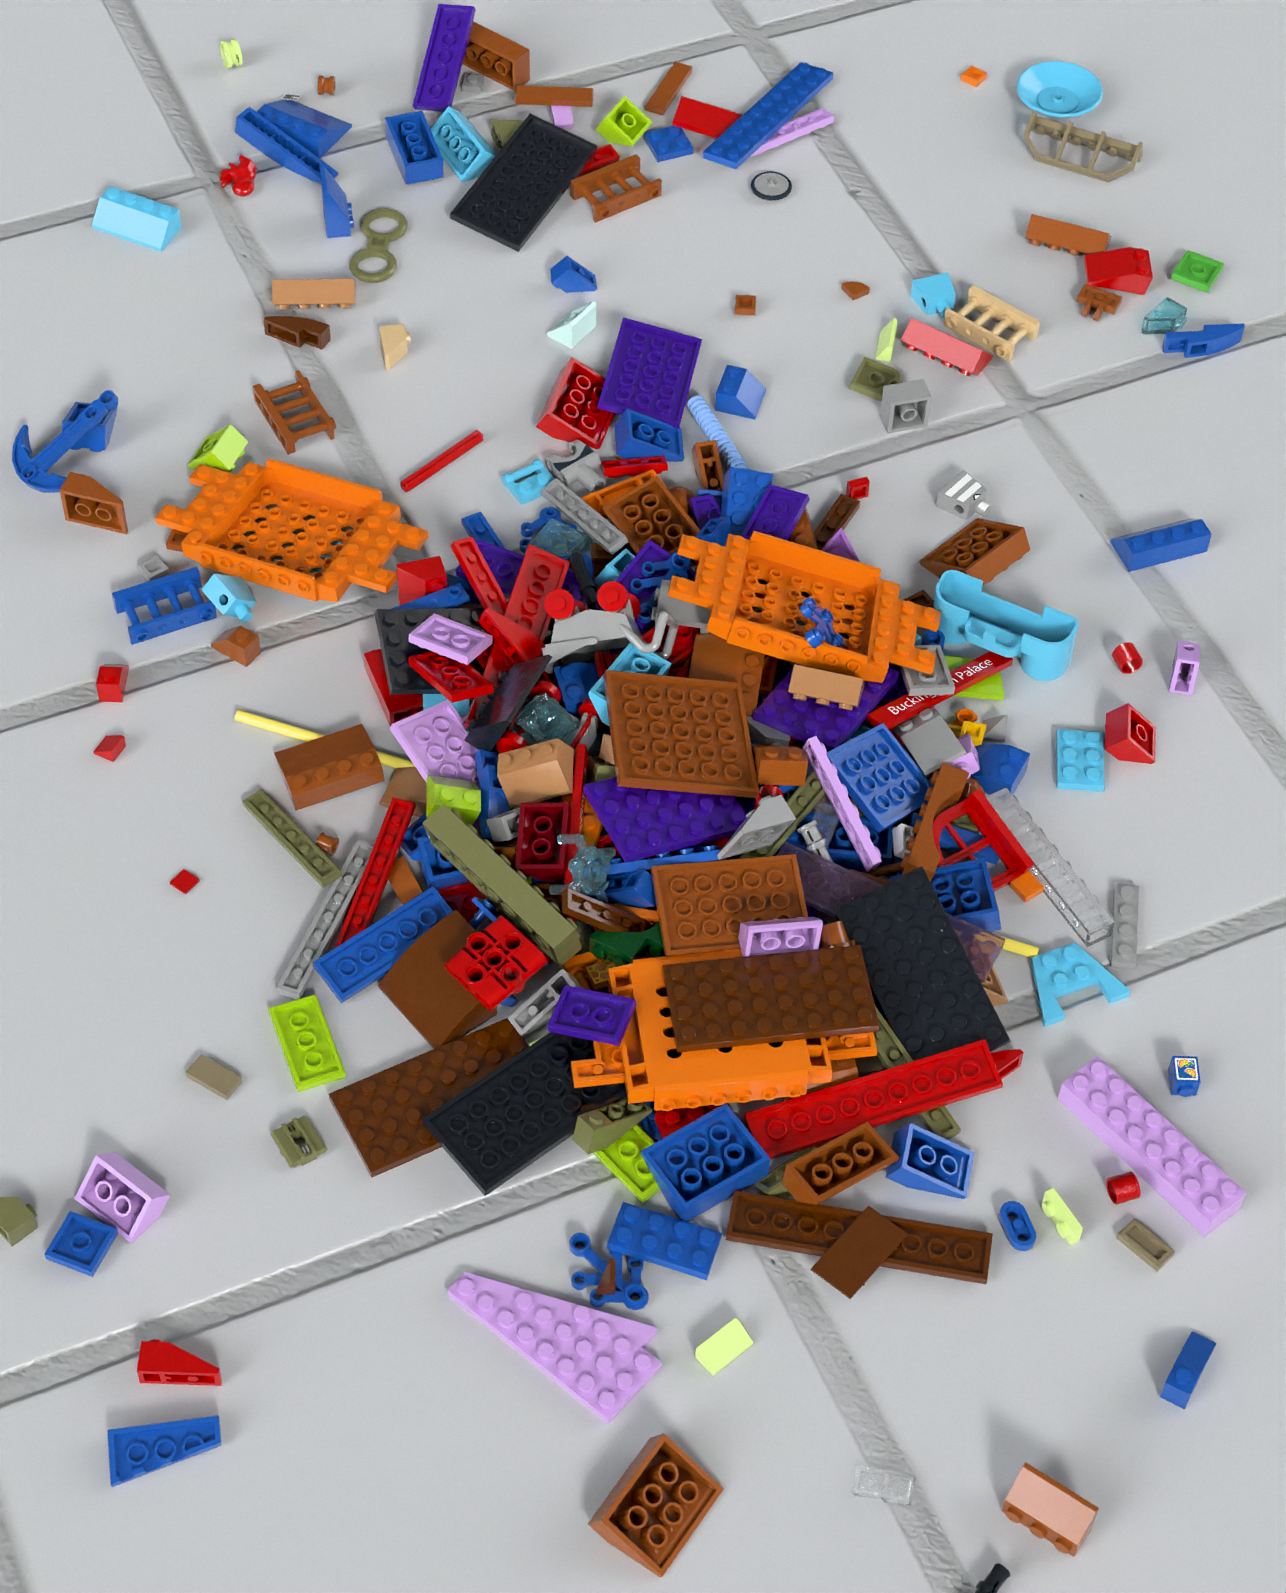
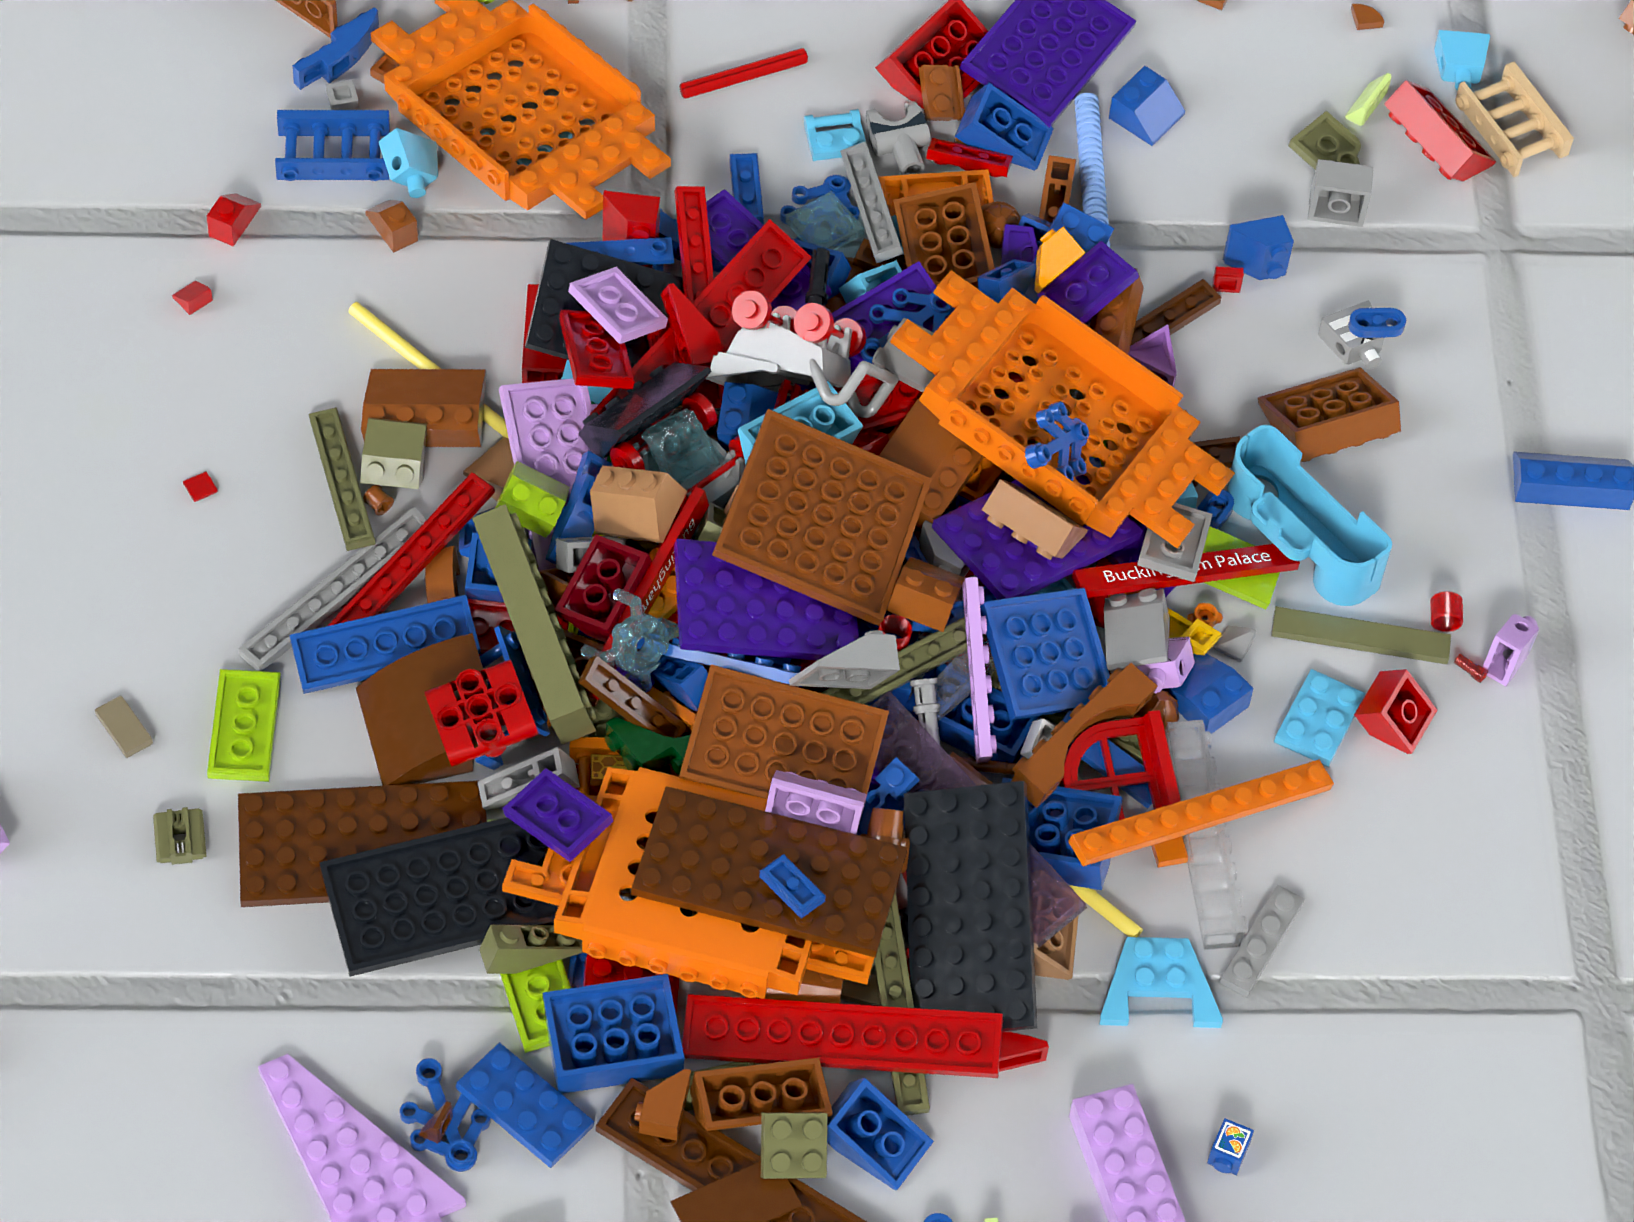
camera: 20 degrees right, 5 degrees up
(137, 540) = (346, 48): none -> blue slope
(325, 805) = (393, 453): none -> olive slope
(593, 428) = (941, 92): none -> dark orange plate
(743, 505) = (1055, 257): none -> light orange slope
(773, 1201) = (664, 1107): none -> dark orange slope
(797, 1000) = (792, 886): none -> blue plate
(822, 902) = (893, 781): none -> blue plate
(871, 458) = (1260, 247): none -> blue slope
(883, 1191) = (793, 1145): none -> olive plate
(979, 481) = (1376, 321): none -> blue plate
(1041, 851) = (1200, 812): none -> orange plate
(1077, 695) = (1361, 635): none -> olive tile
(1168, 692) = (1476, 671): none -> clear red piece

